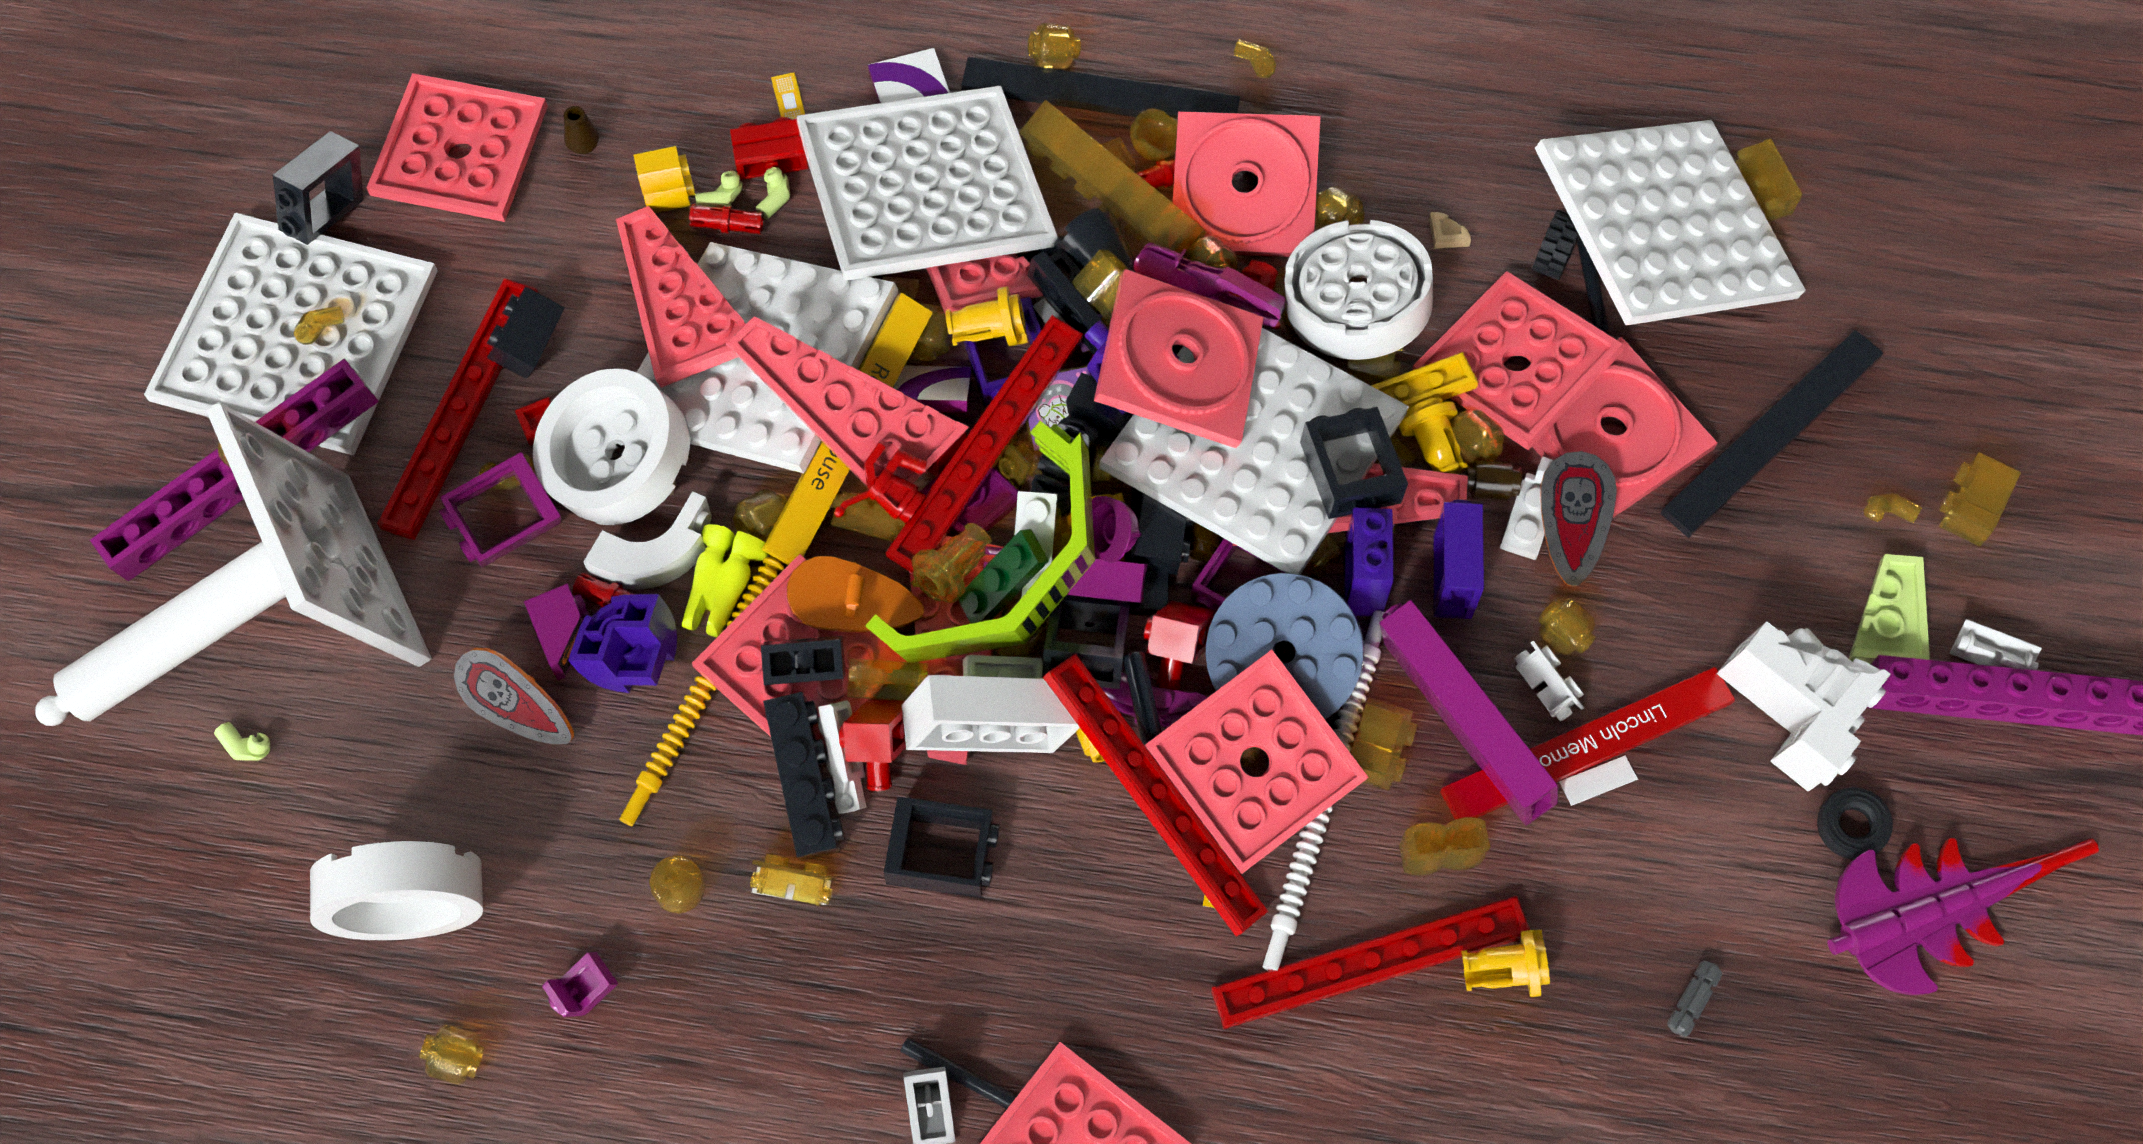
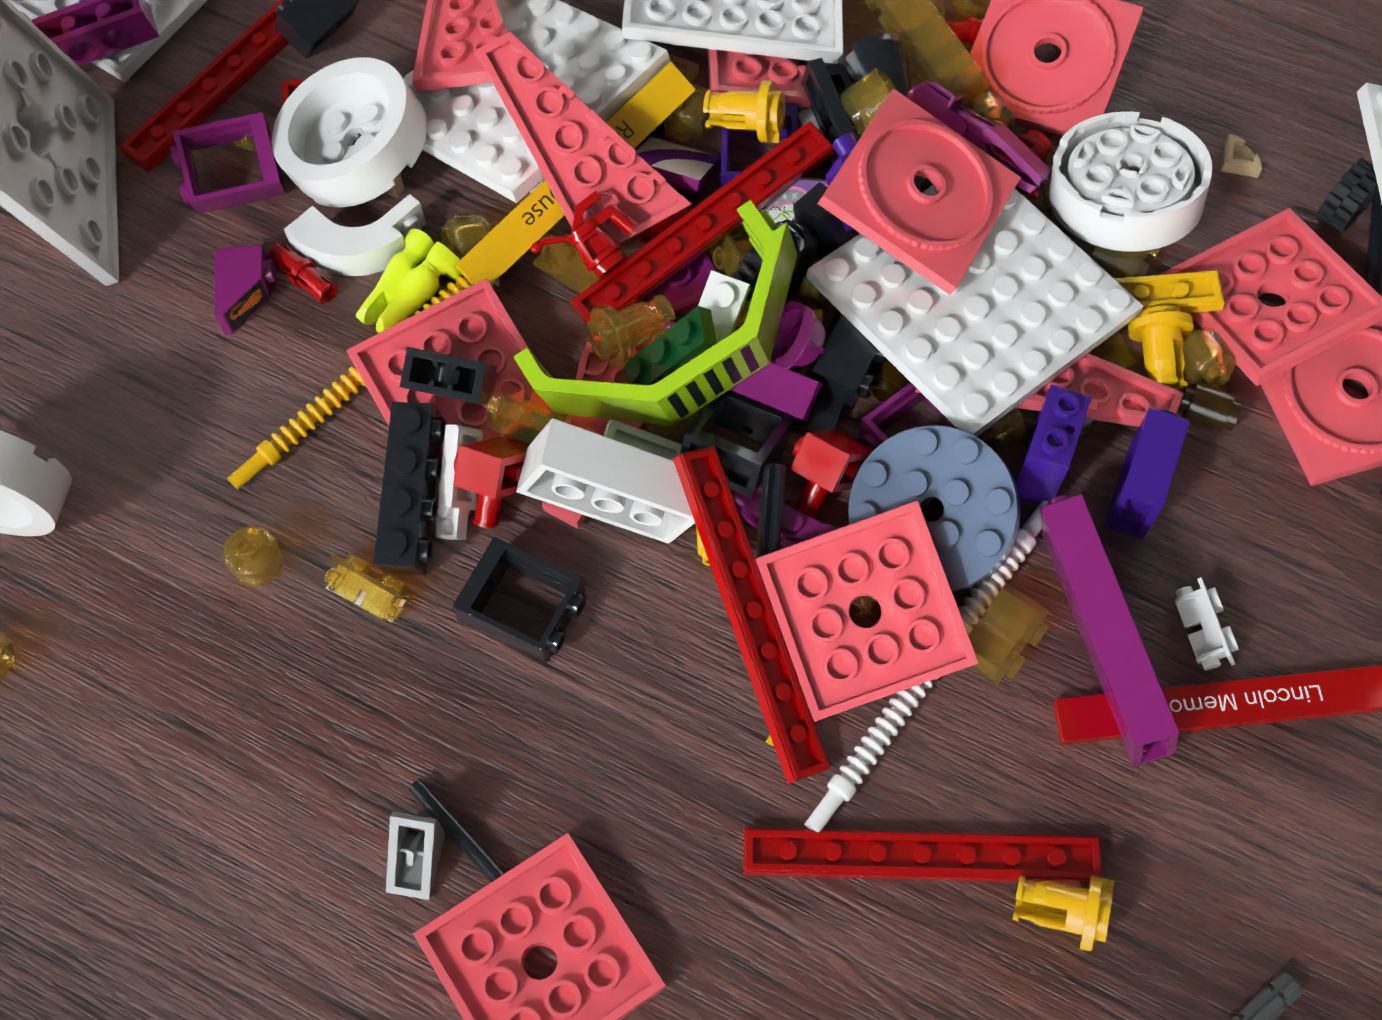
camera: 20 degrees right, 0 degrees up
(509, 697) = (169, 334): shield -> none
(580, 987) = (124, 627): magenta bracket -> none
(625, 642) = (294, 314): dark purple brick -> none
(846, 596) = (505, 321): orange shield -> none
(1337, 206) = (1135, 97): clear yellow head -> none
(1365, 493) = (1072, 373): black window -> none
(1455, 846) = (1048, 762): clear yellow brick -> none
(1525, 525) = (1240, 450): white hinge -> none
(1566, 626) = (1242, 575): clear yellow head -> none
(1576, 512) = (1289, 463): shield -> none
(1598, 780) = (1227, 744): white sticker -> none

